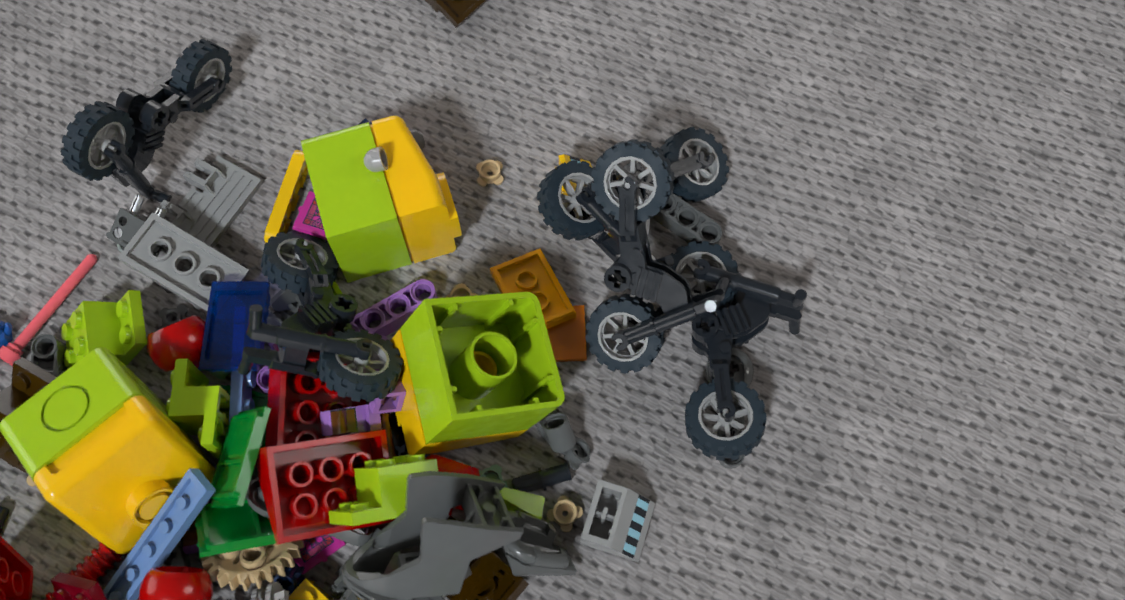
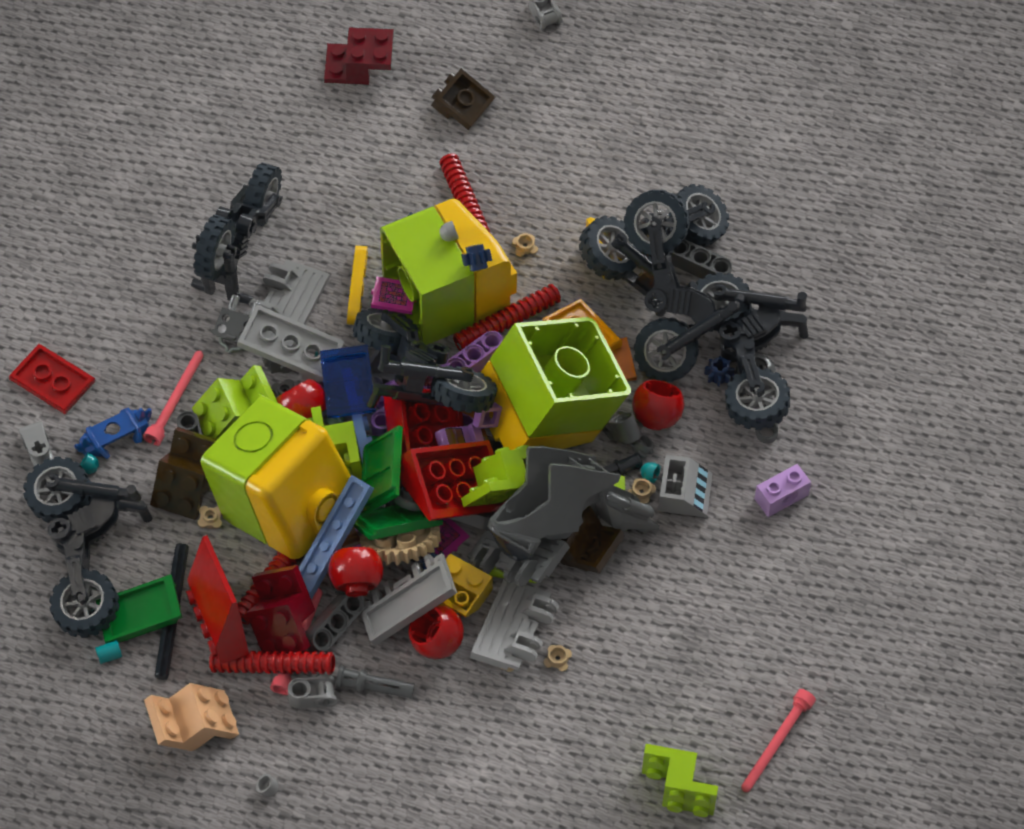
camera: 10 degrees left, 10 degrees down
(399, 199) = (476, 257): none -> dark blue gear
(434, 113) = (460, 186): none -> red piece
(451, 260) = (515, 313): none -> red piece
(577, 488) = (648, 471): none -> teal hinge
(603, 404) = (658, 404): none -> red wheel
(693, 365) = (723, 375): none -> dark blue gear
(737, 543) = (782, 490): none -> lavender brick

